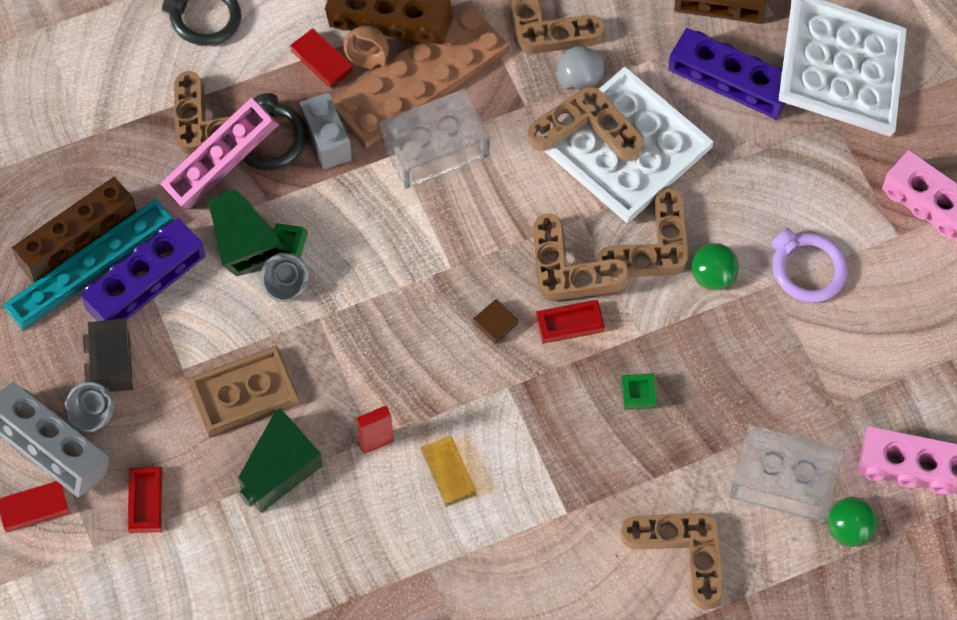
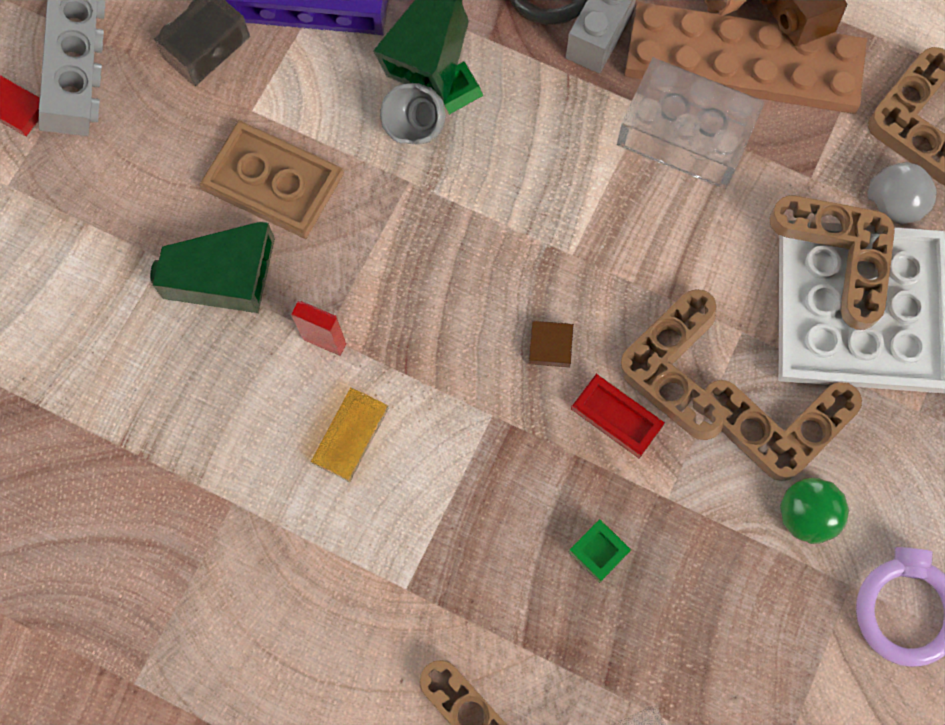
camera: 50 degrees right, 10 degrees up
(89, 406) = (134, 63): light grey hair -> none
(145, 500) = (89, 188): red tile -> none

